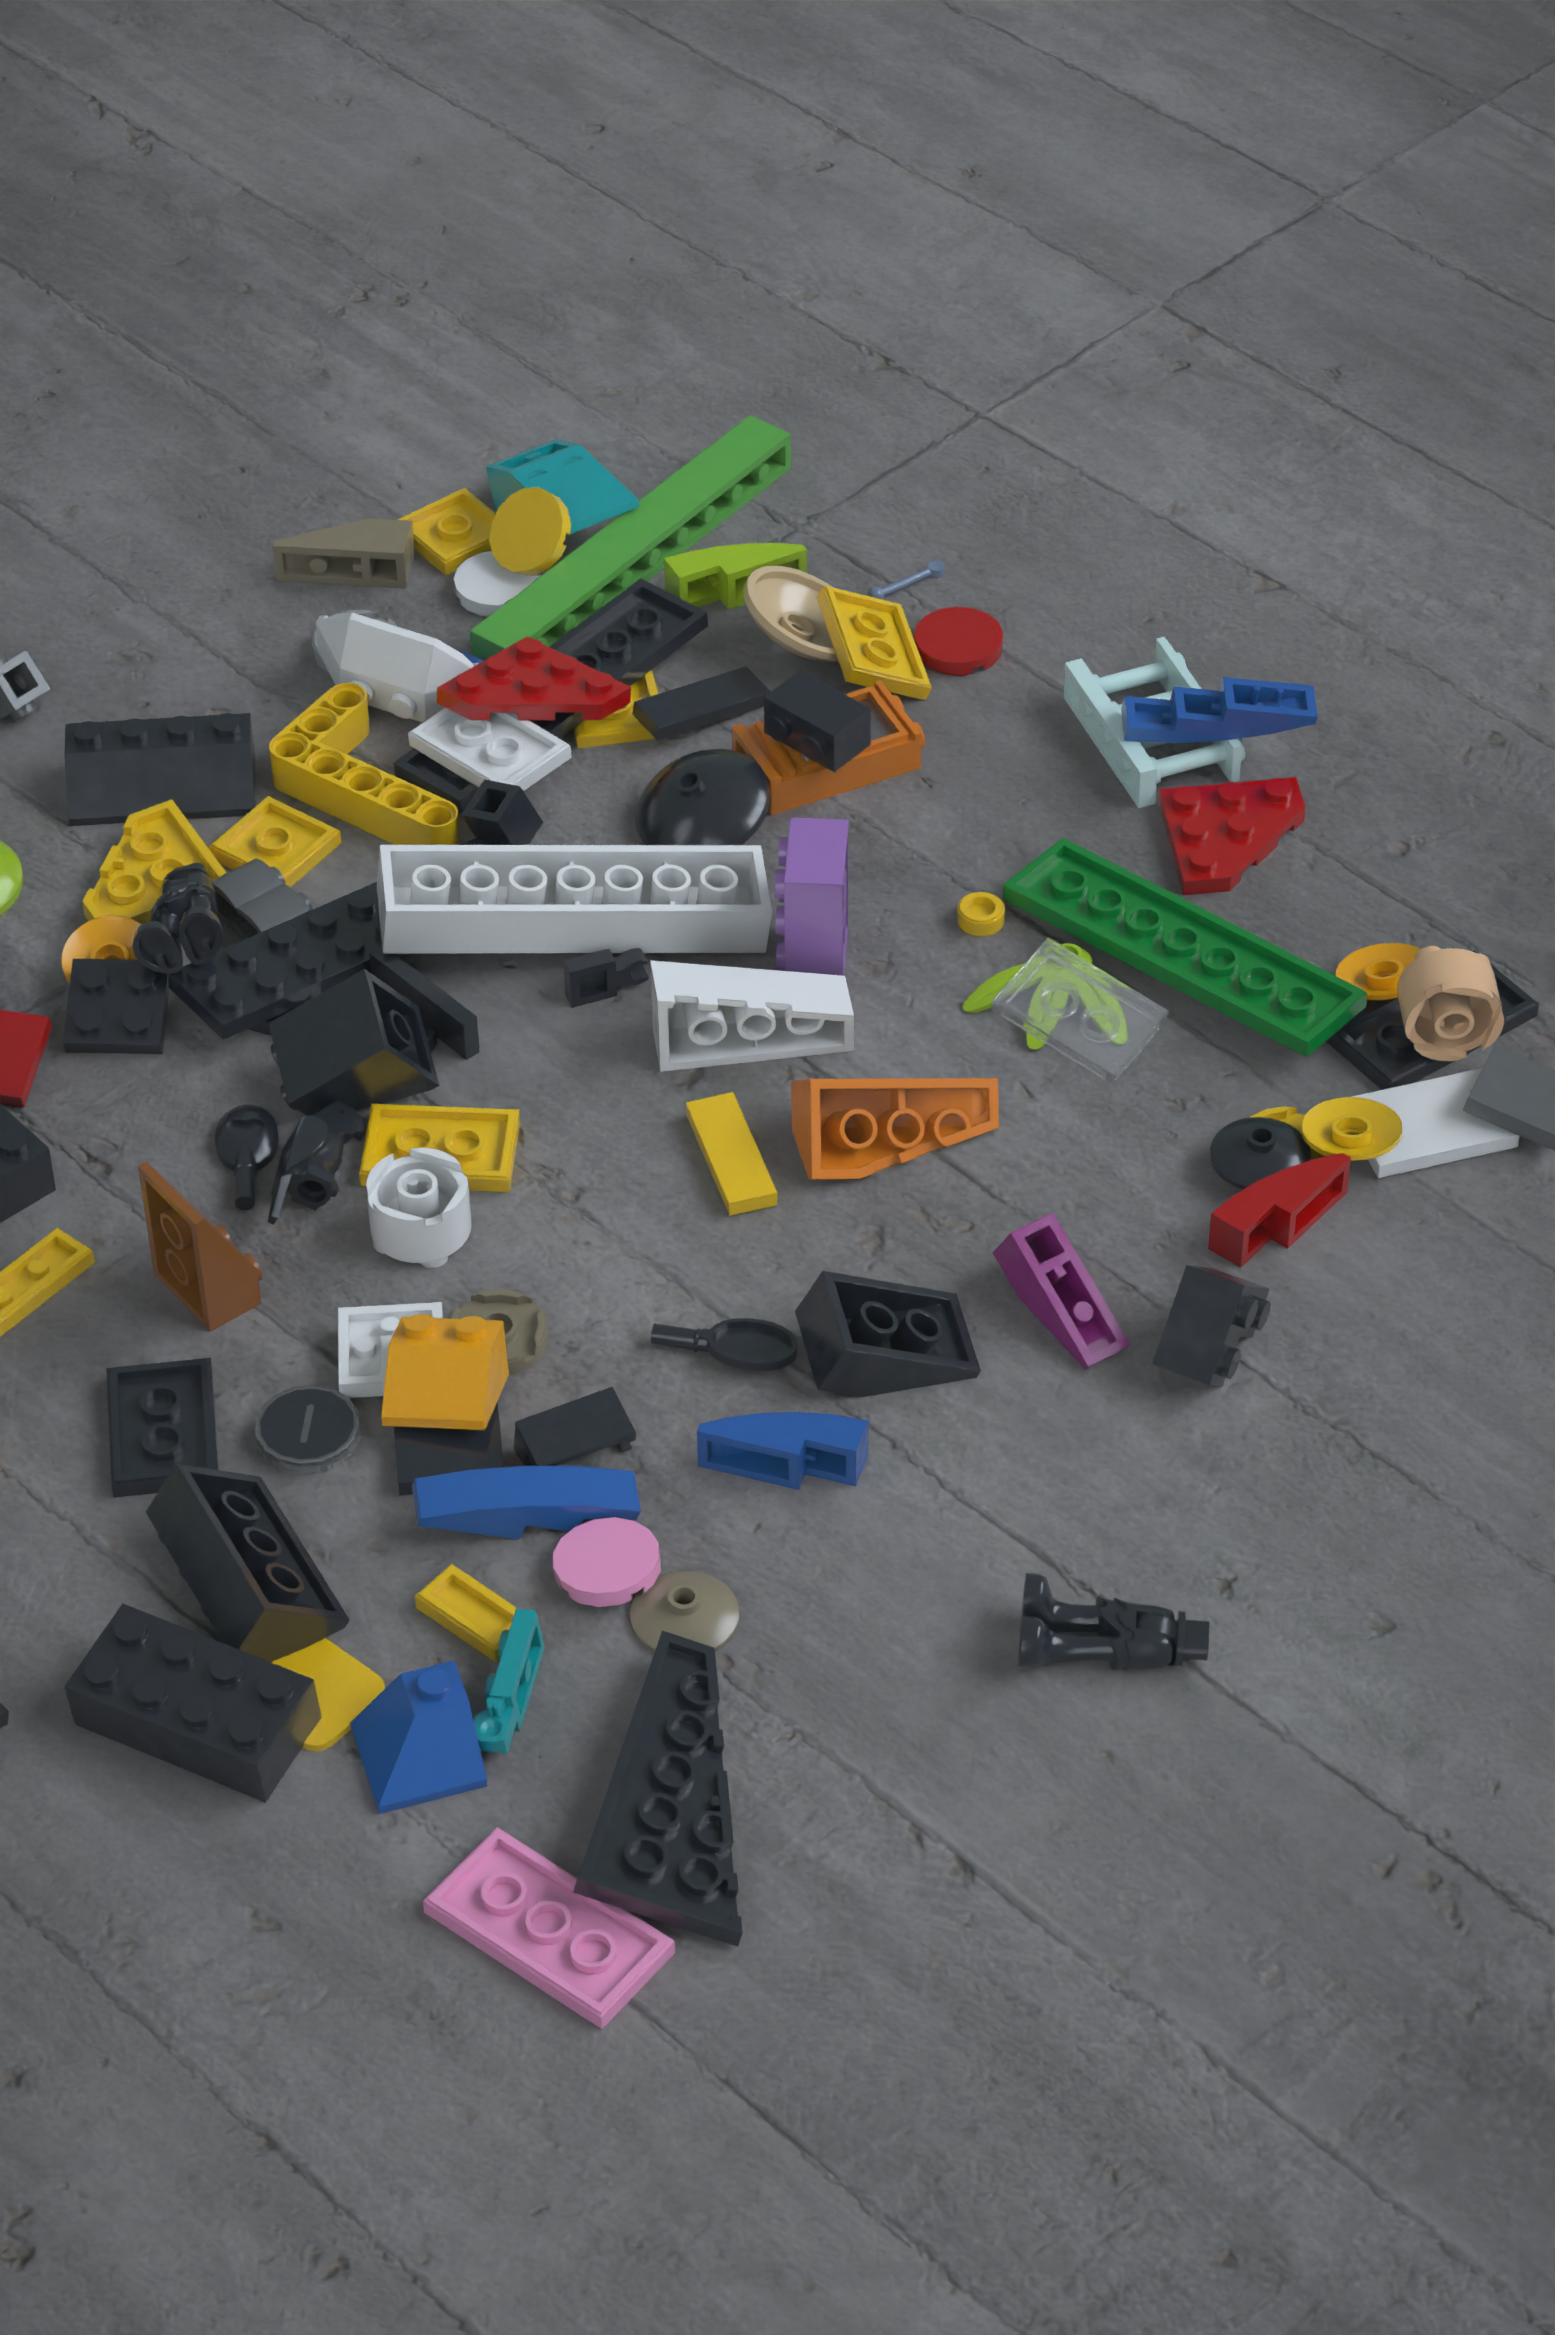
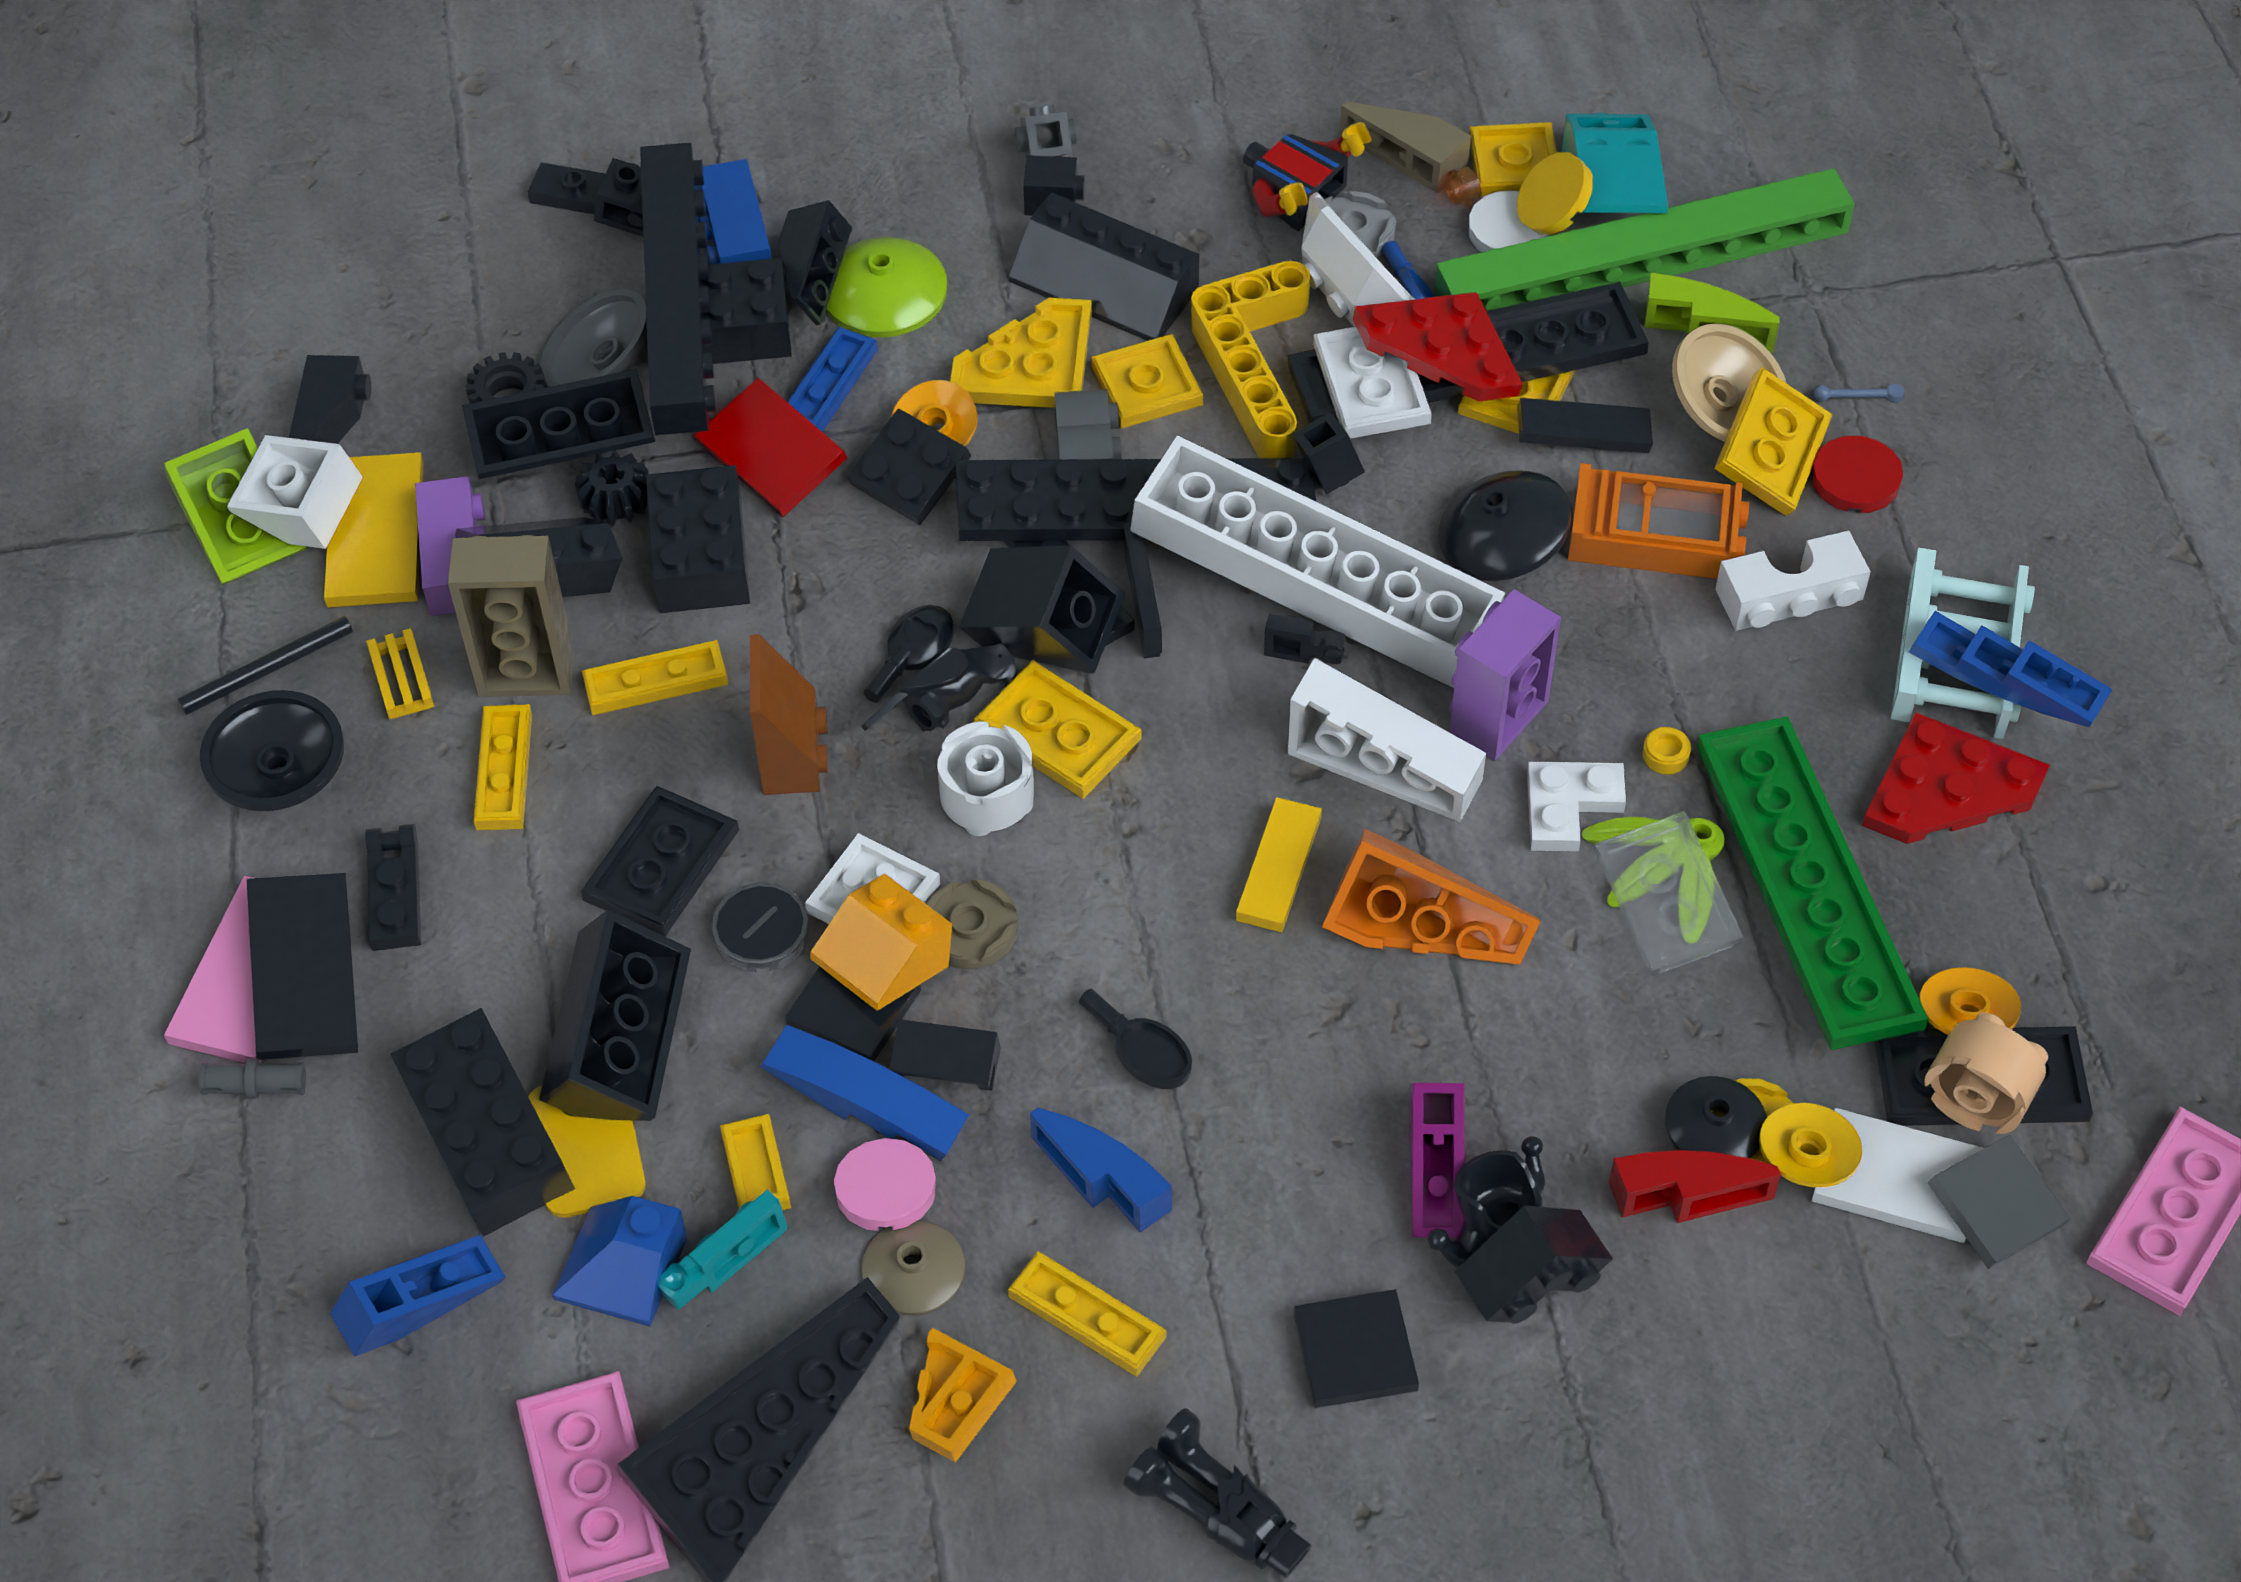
camera: 35 degrees right, 10 degrees up
(41, 725) = (1050, 175): none -> black brick
(183, 917) = (995, 418): black piece -> none
(251, 1872) = (413, 1293): none -> blue slope
(278, 619) = (1300, 167): none -> torso
(430, 569) = (1463, 186): none -> clear orange plate
(812, 1679) = (956, 1395): none -> light orange wing
(817, 721) = (1640, 499): black brick -> none
(868, 1565) = (1087, 1313): none -> yellow tile
(883, 1336) = (1261, 1111): black slope -> none
(926, 988) = (1563, 790): none -> white plate
(1000, 725) = (1760, 594): none -> white arch
(1114, 1469) = (1355, 1348): none -> black tile
(1140, 1297) = (1489, 1194): none -> black piece

